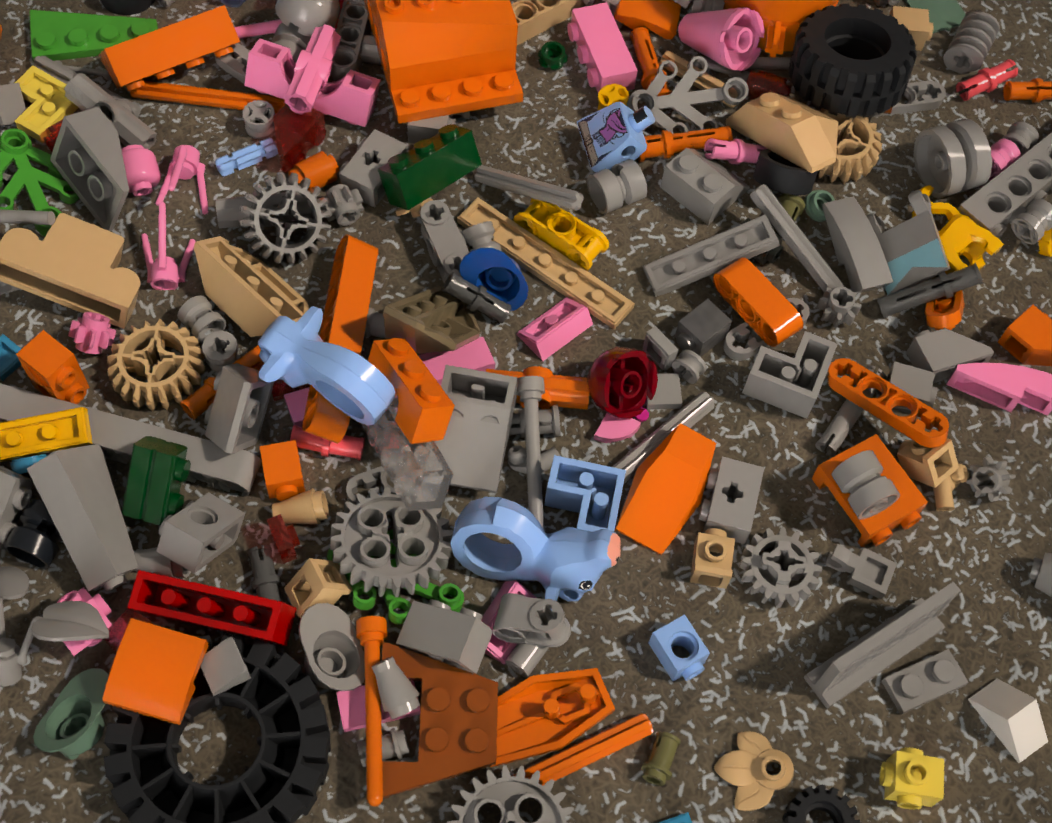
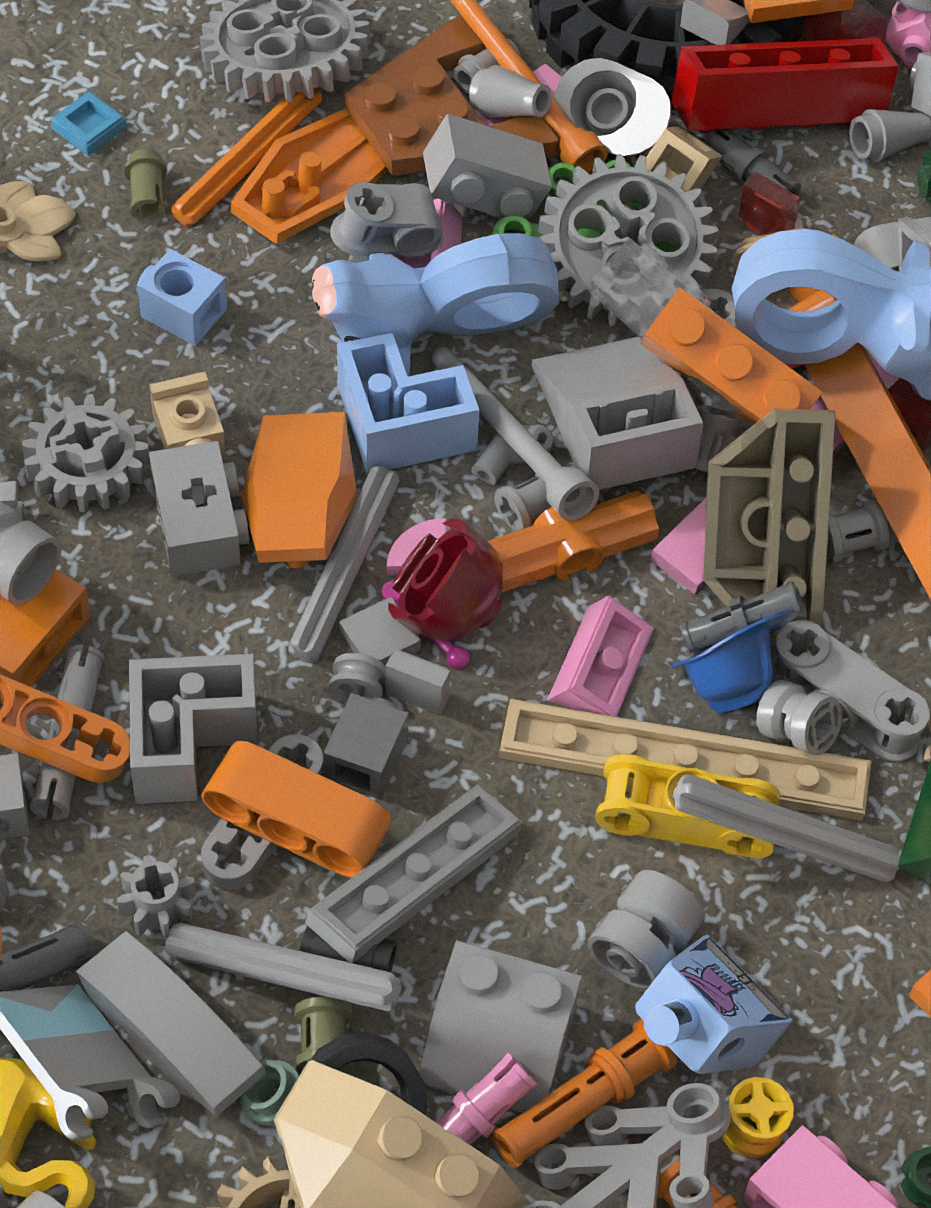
camera: 155 degrees right, 5 degrees down
(200, 532) = (850, 179): light grey brick -> none

